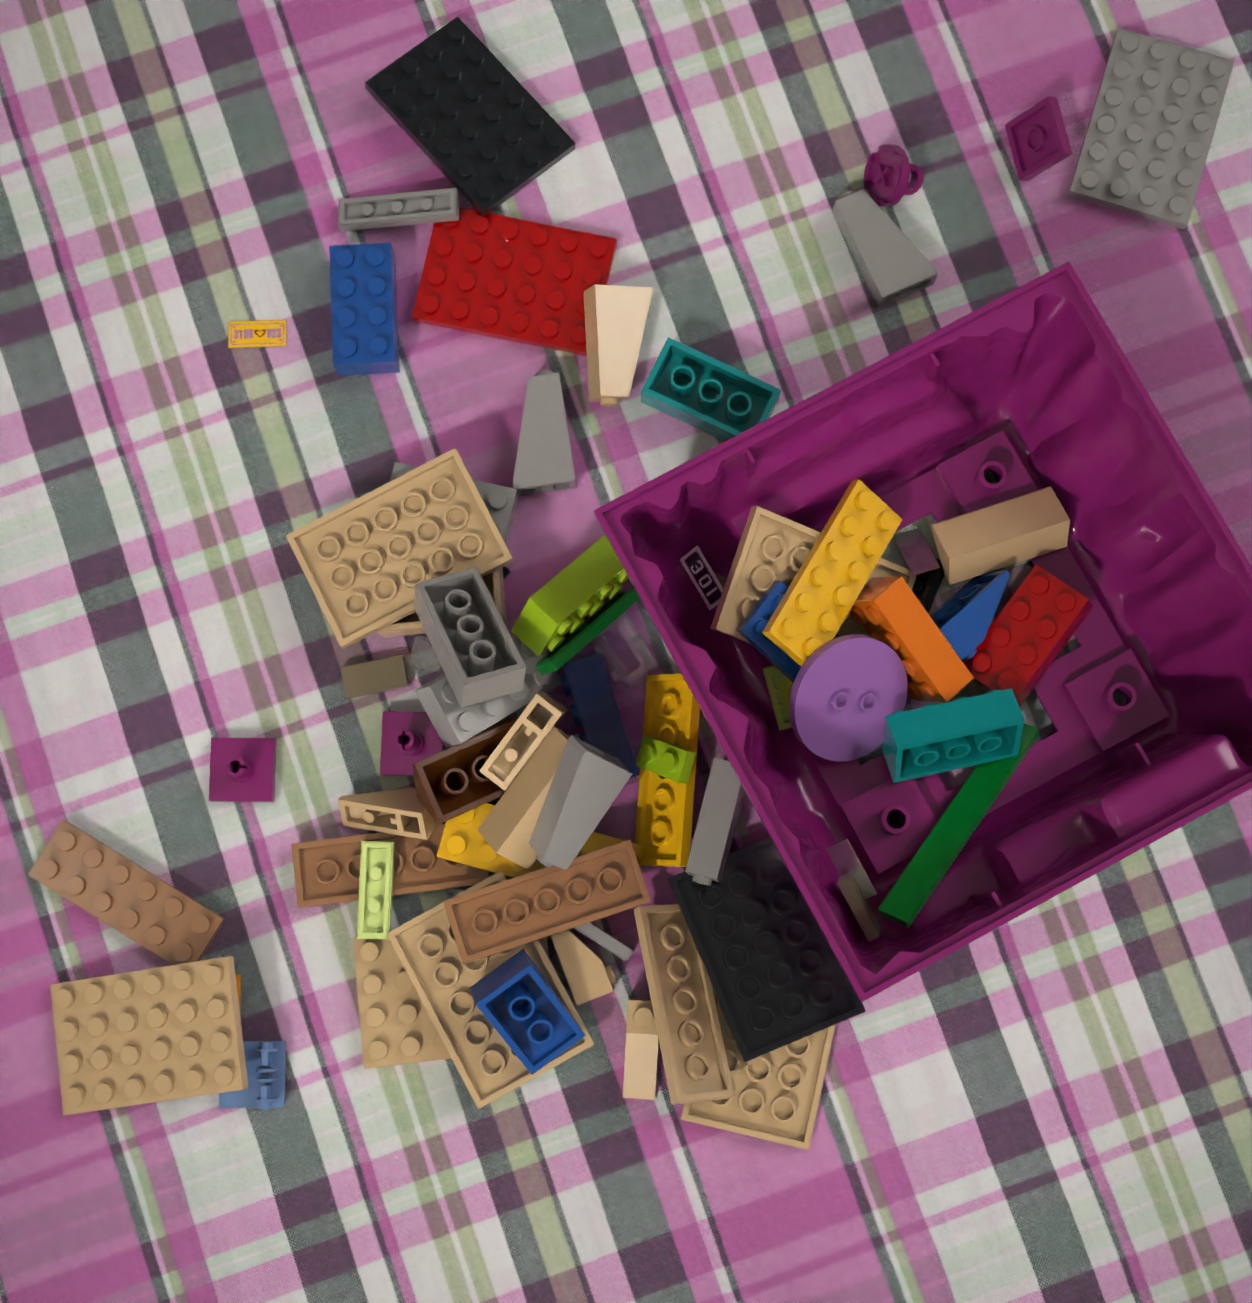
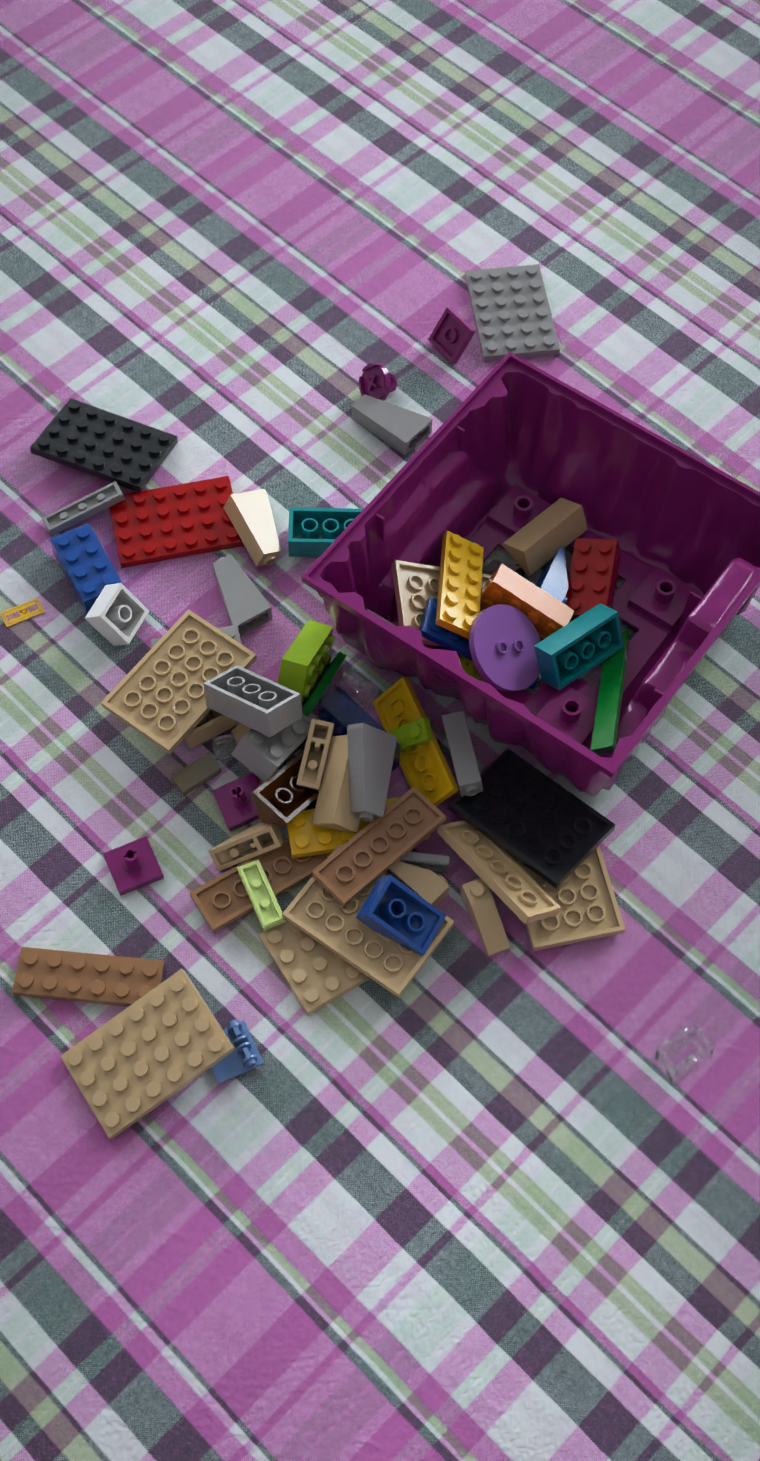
camera: 30 degrees left, 20 degrees down
(368, 403) = (117, 614): none -> white brick

